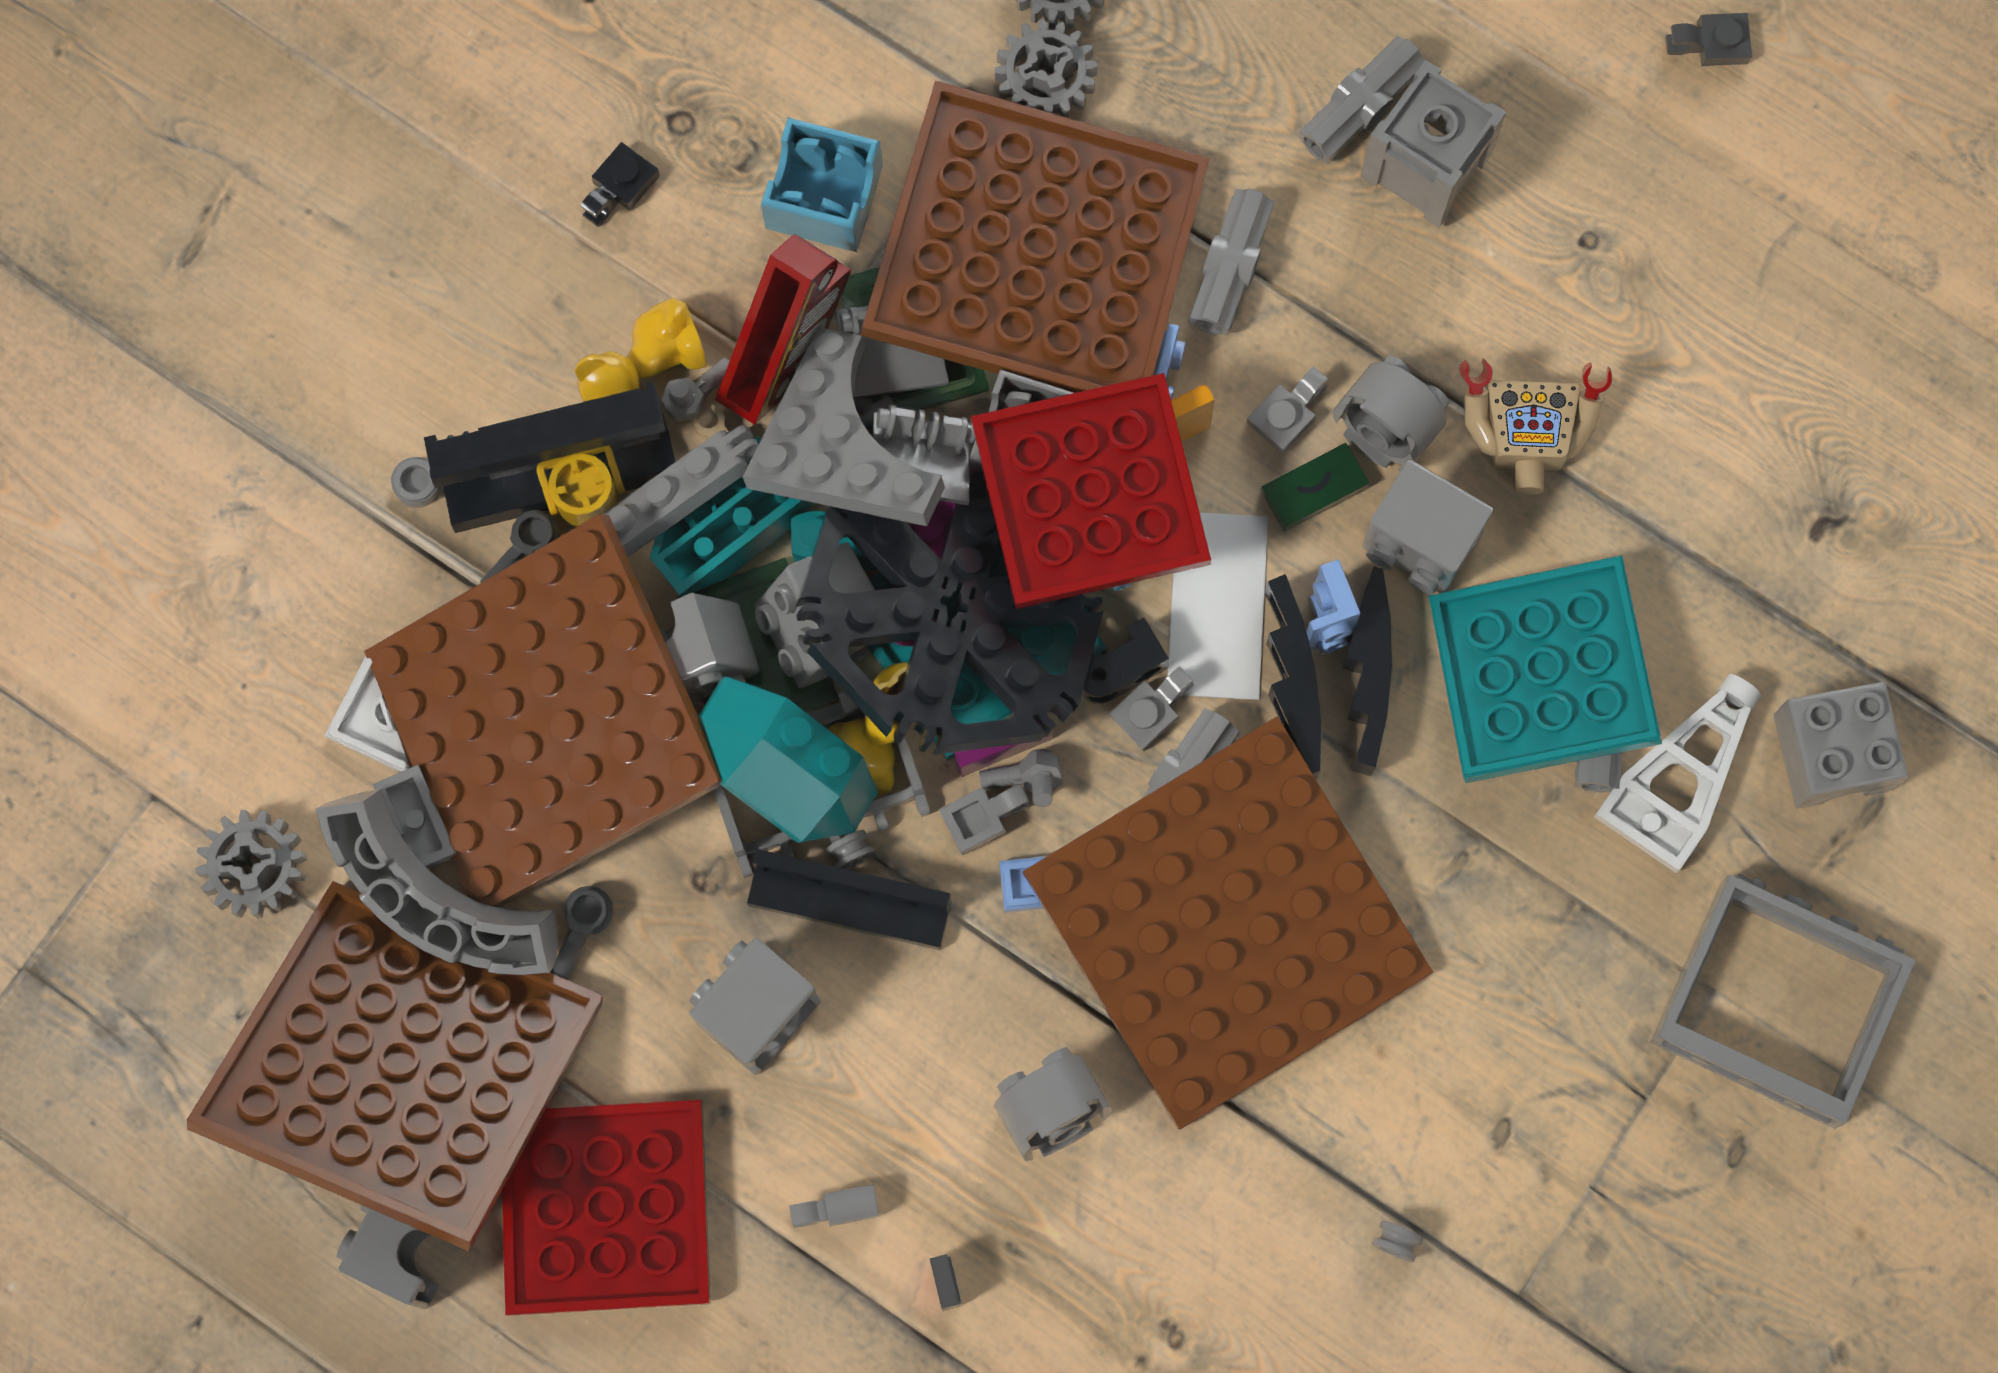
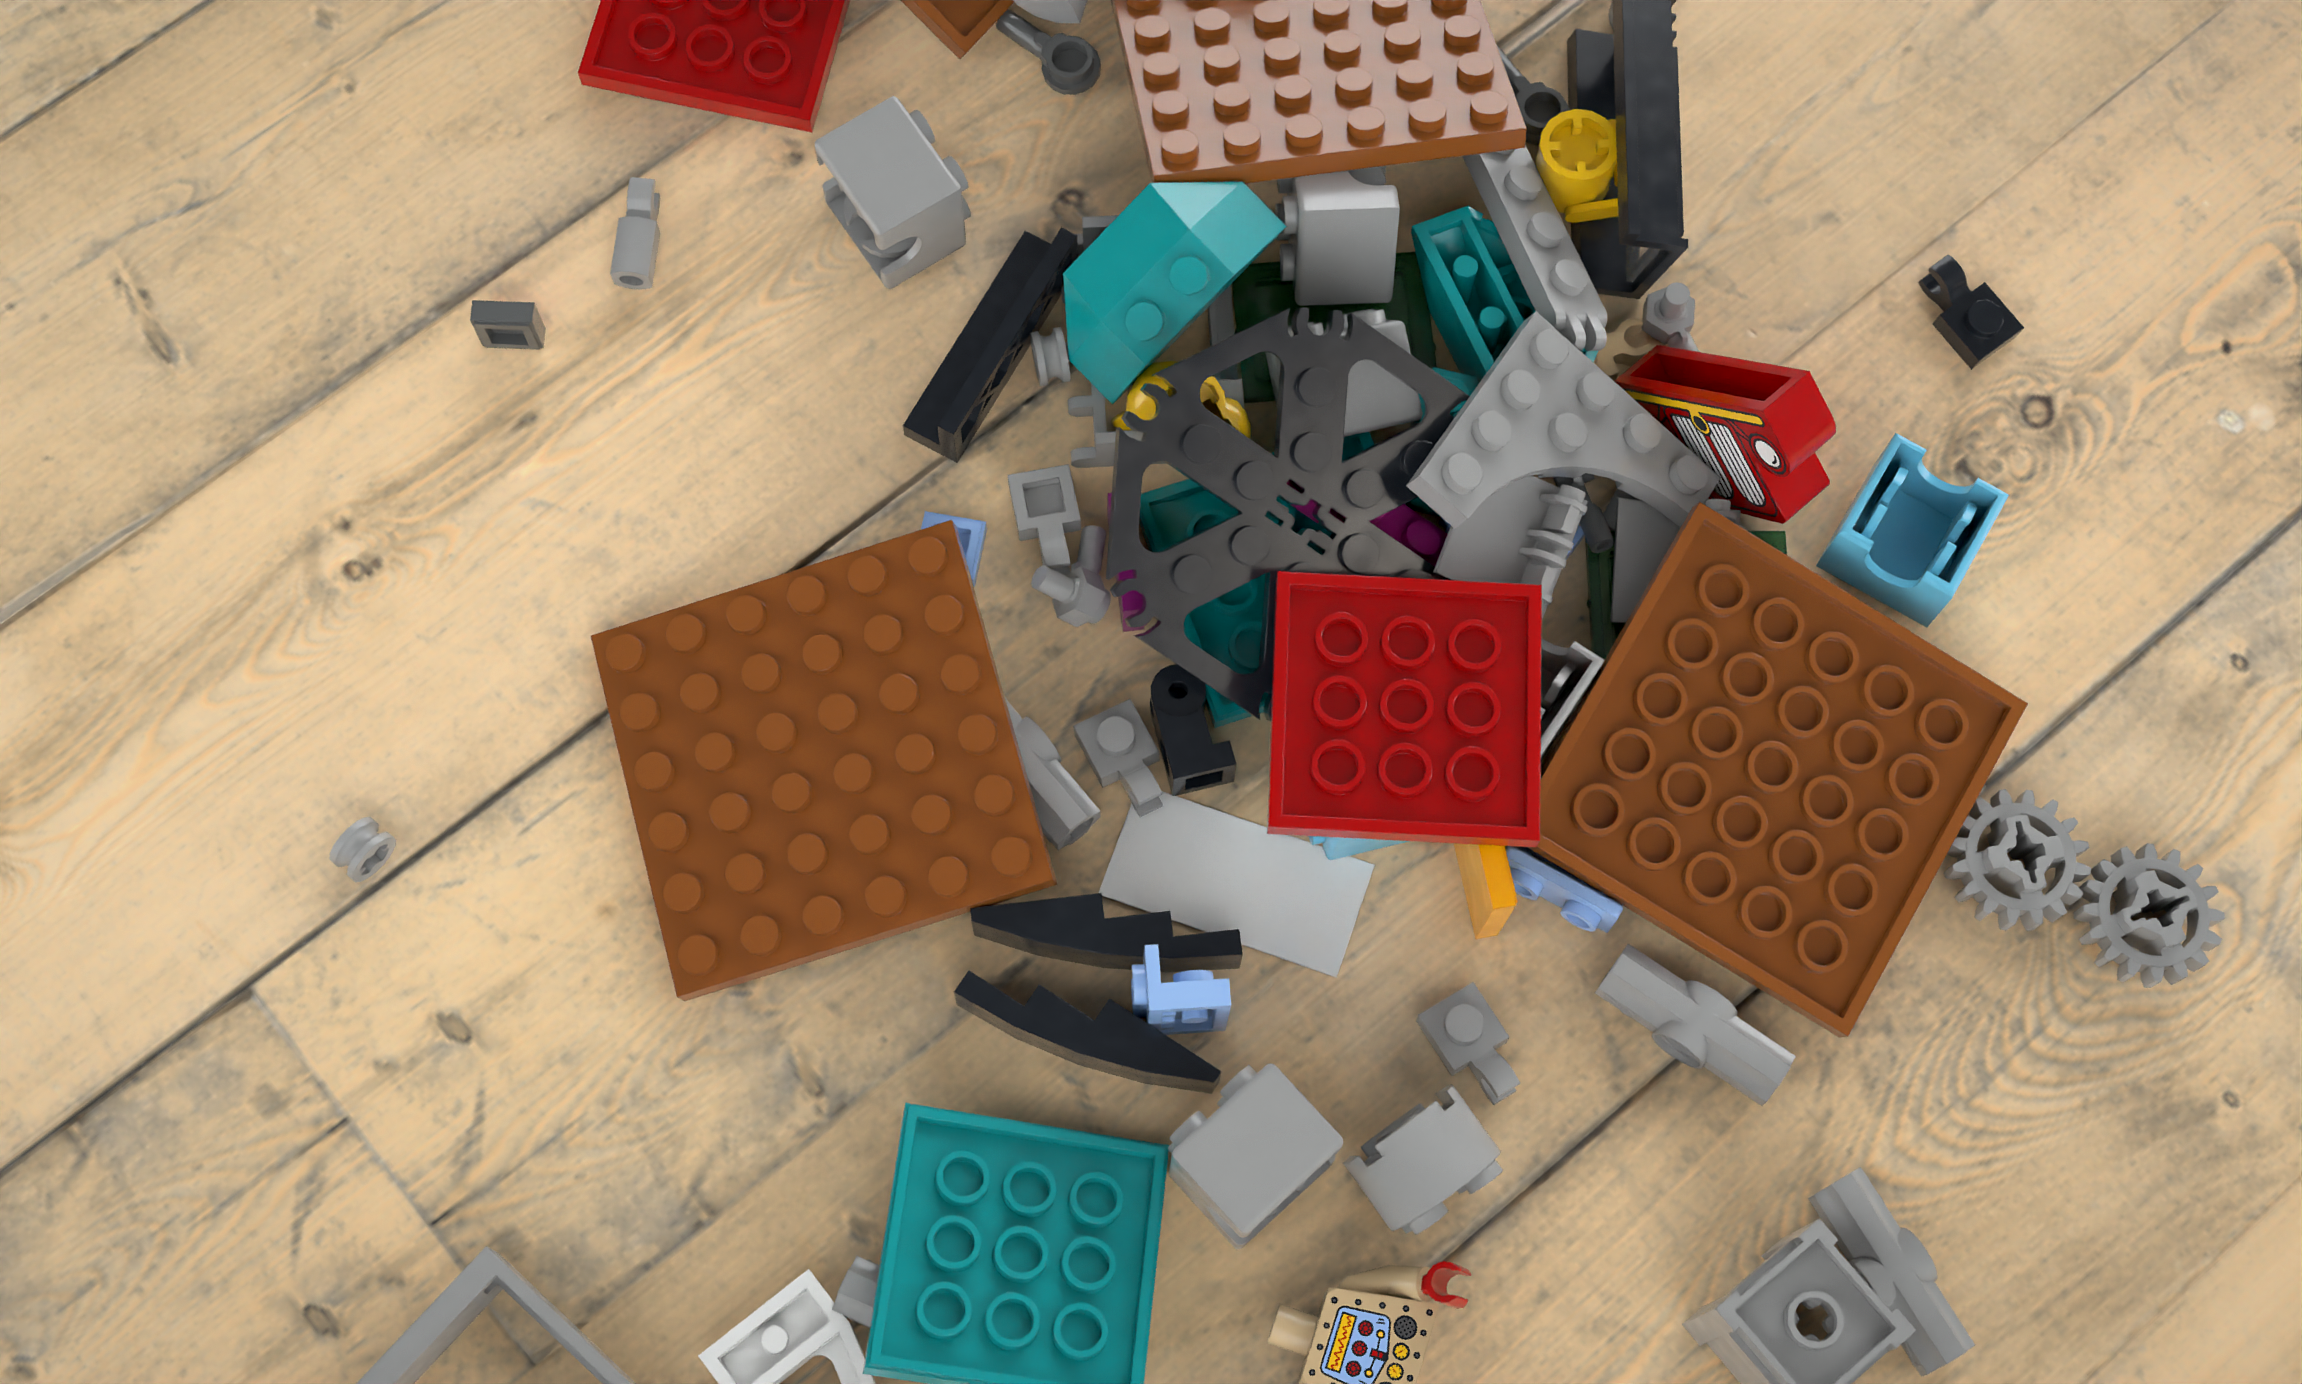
camera: 100 degrees right, 5 degrees down
(661, 341) = (1748, 306): yellow animal -> none
(1050, 1104) = (666, 485): light grey brick -> none
(1315, 487) = (1358, 1045): dark green tile -> none

